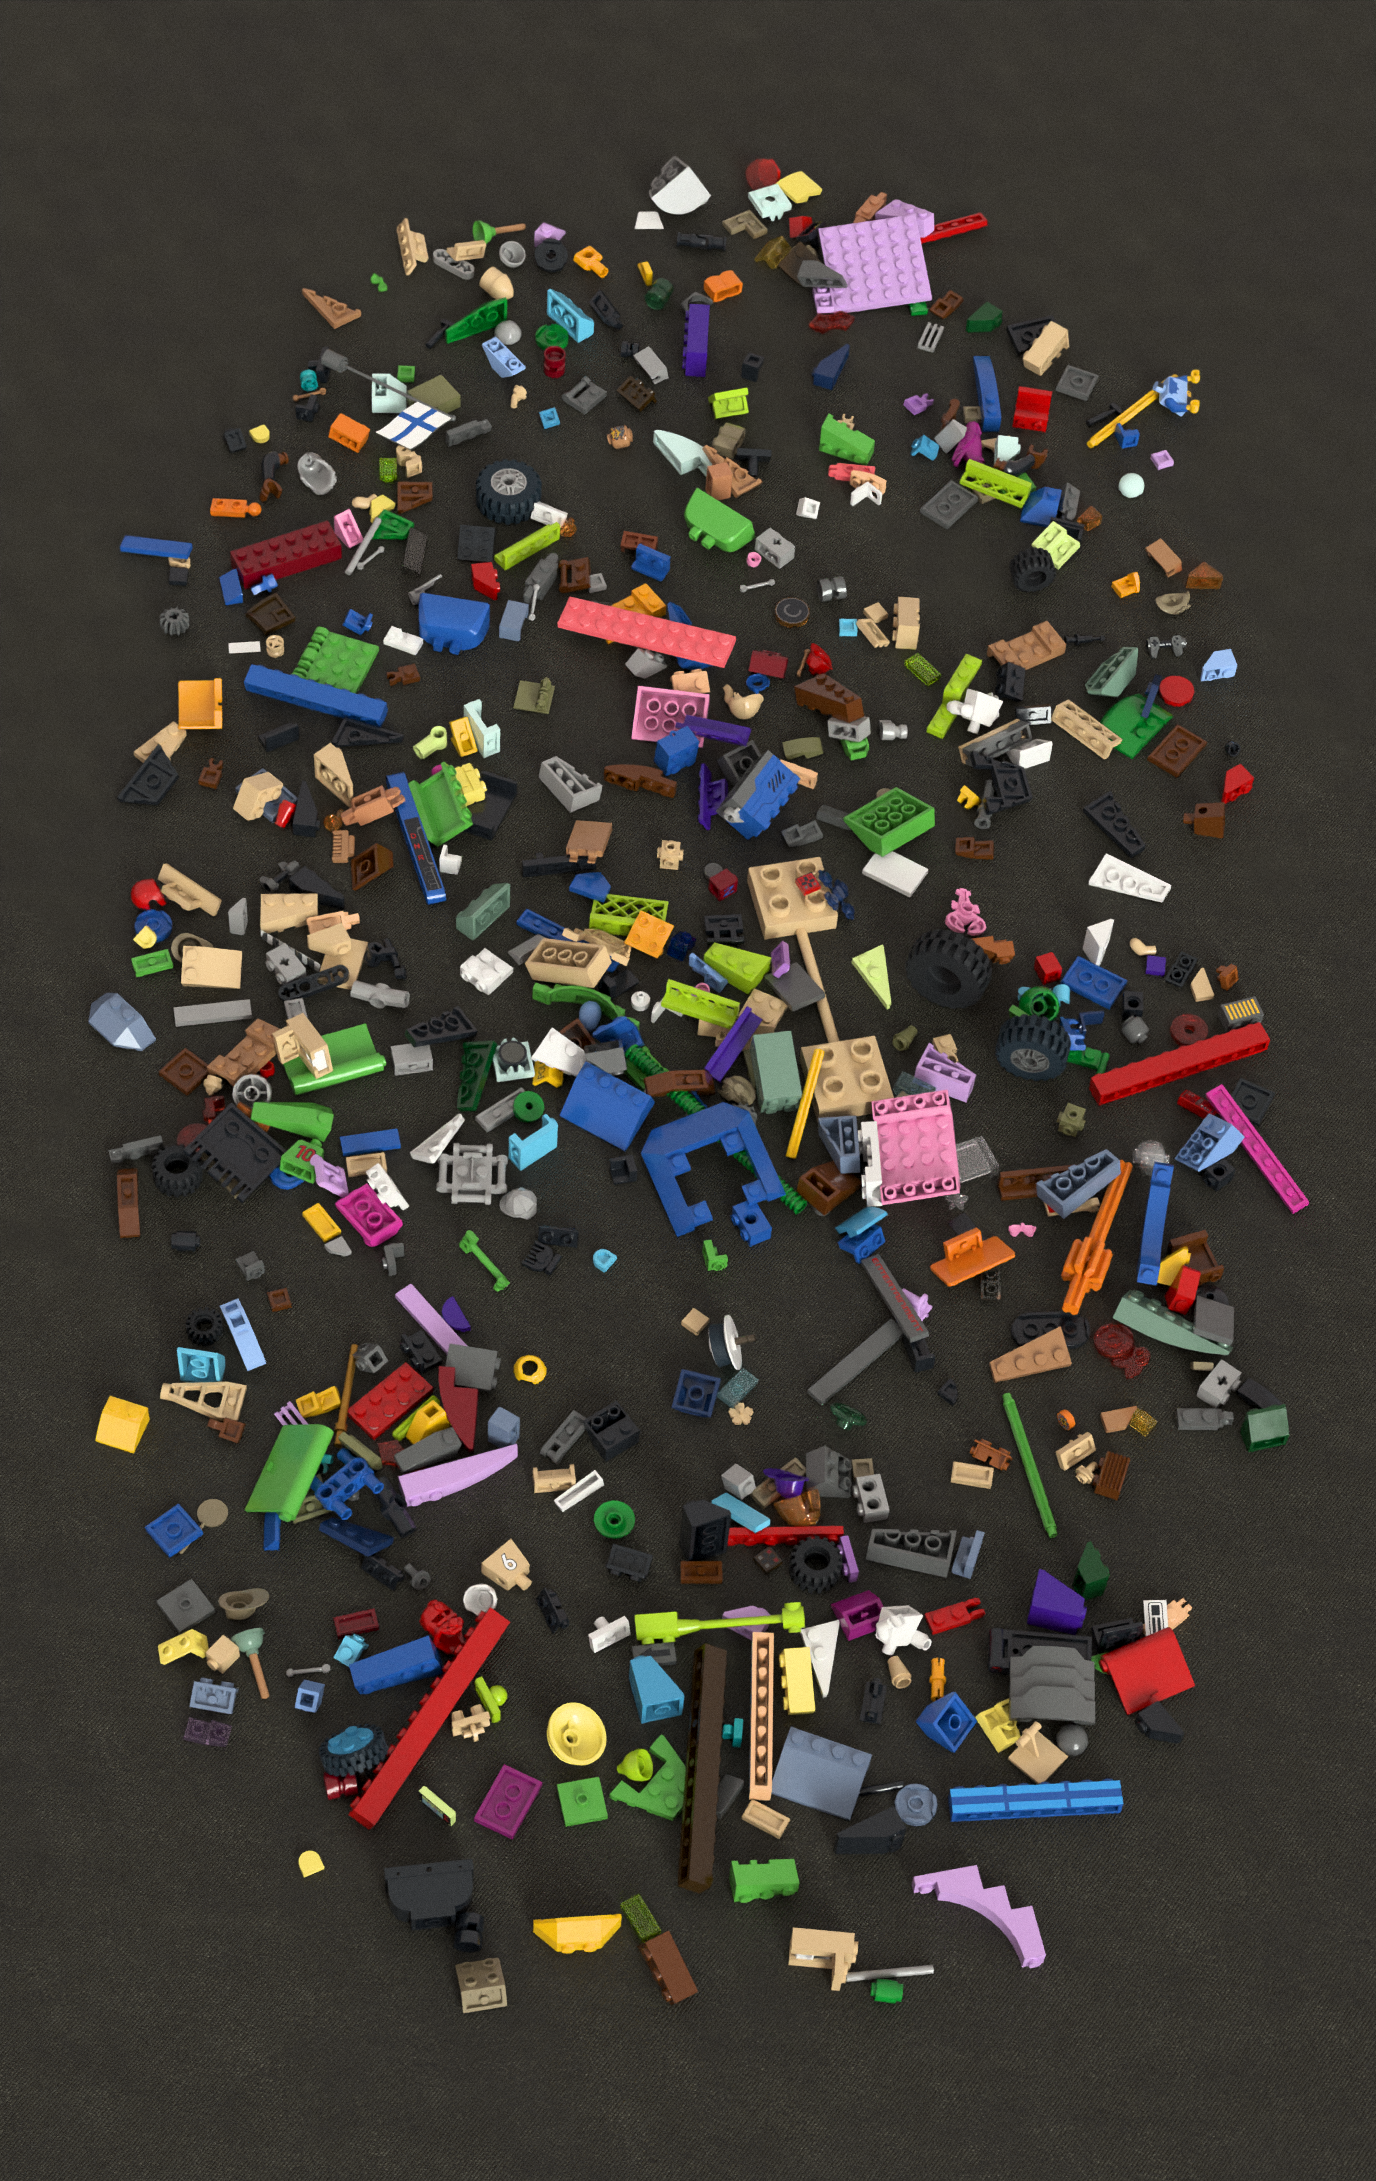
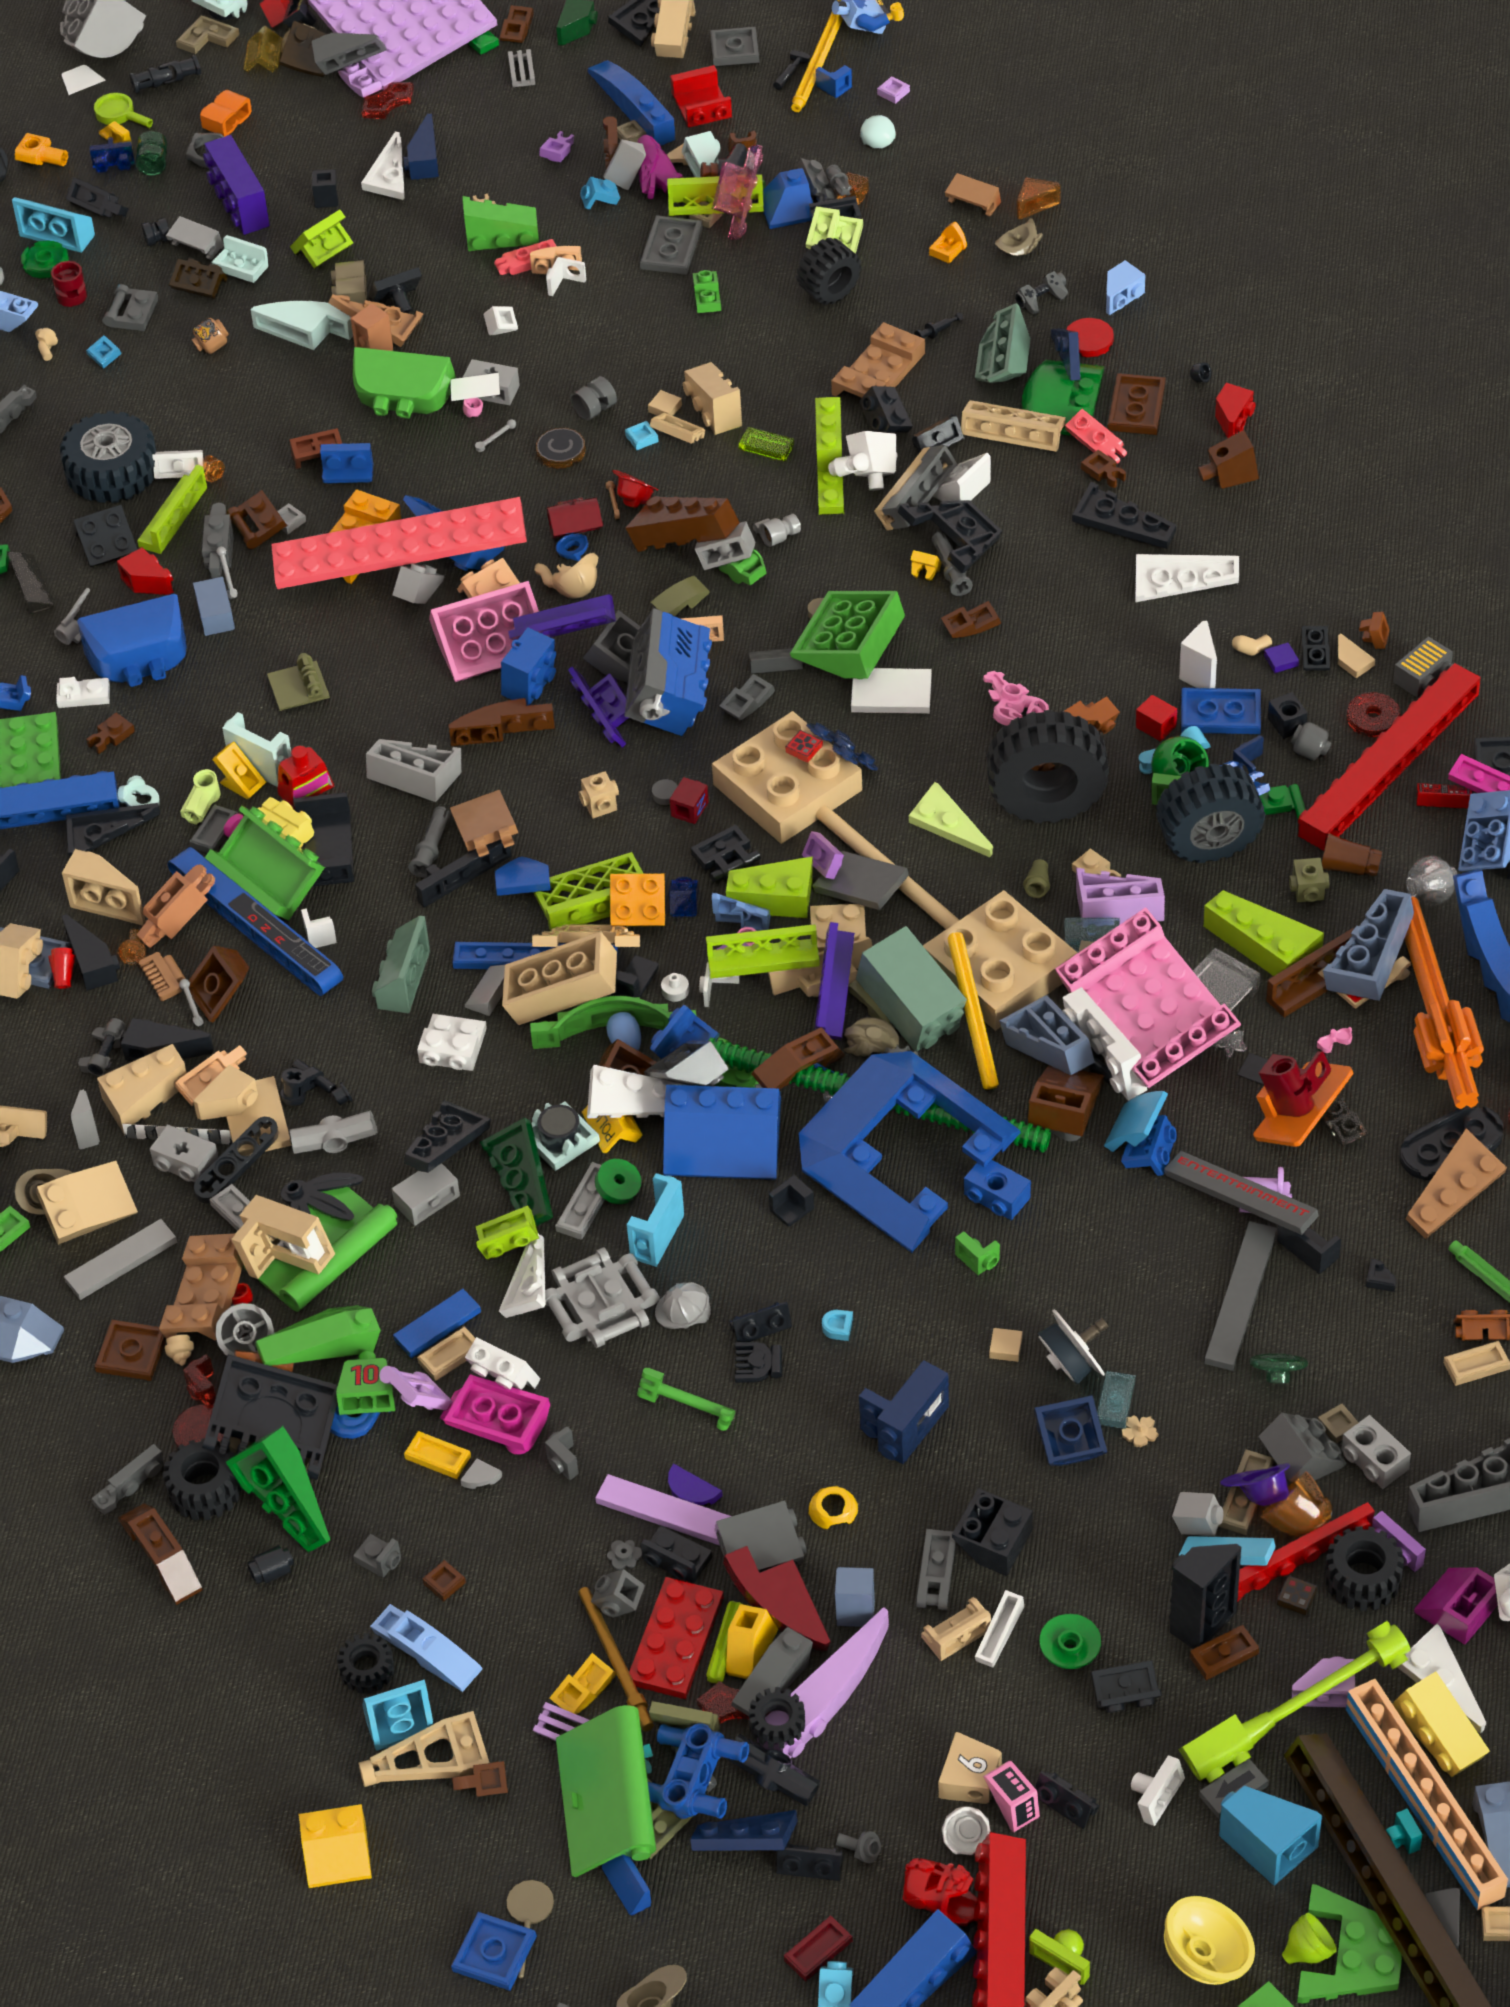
camera: 20 degrees left, 5 degrees down
(216, 1188) = (278, 1477): none -> green wedge
(339, 1024) = (301, 1194): none -> black plant
(345, 885) = (184, 984): none -> light grey hinge
(390, 1340) = (624, 1554): none -> dark grey plant
(399, 717) = (136, 785): none -> light aqua piece
(411, 1488) = (776, 1702): none -> black tyre
(422, 770) = (211, 831): none -> dark grey tile
(442, 1107) = (506, 1232): none -> lime bracket
(498, 758) = (302, 775): none -> red torso
(520, 1593) = (1013, 1795): none -> bright pink slope
(545, 841) = (427, 850): none -> dark grey pin
(606, 1335) = (909, 1415): none -> dark blue brick
(635, 283) = (111, 155): none -> clear blue hips
(658, 252) = (118, 108): none -> lime piece
(671, 393) = (242, 259): none -> light aqua bracket
(760, 547) = (475, 386): none -> white sticker
(800, 372) = (387, 171): none -> white wing
(950, 547) = (706, 291): none -> bright green slope
(966, 1247) = (1293, 1087): none -> dark red piece
(1006, 486) = (735, 190): none -> clear pink bracket
(1018, 1139) = (1259, 933): none -> lime wedge
(1081, 508) = (838, 180): none -> dark grey axle
(1108, 1117) = (1350, 857): none -> reddish brown plant
(1125, 783) = (1102, 466): none -> reddish brown plate
(1134, 761) = (1095, 435): none -> coral hinge

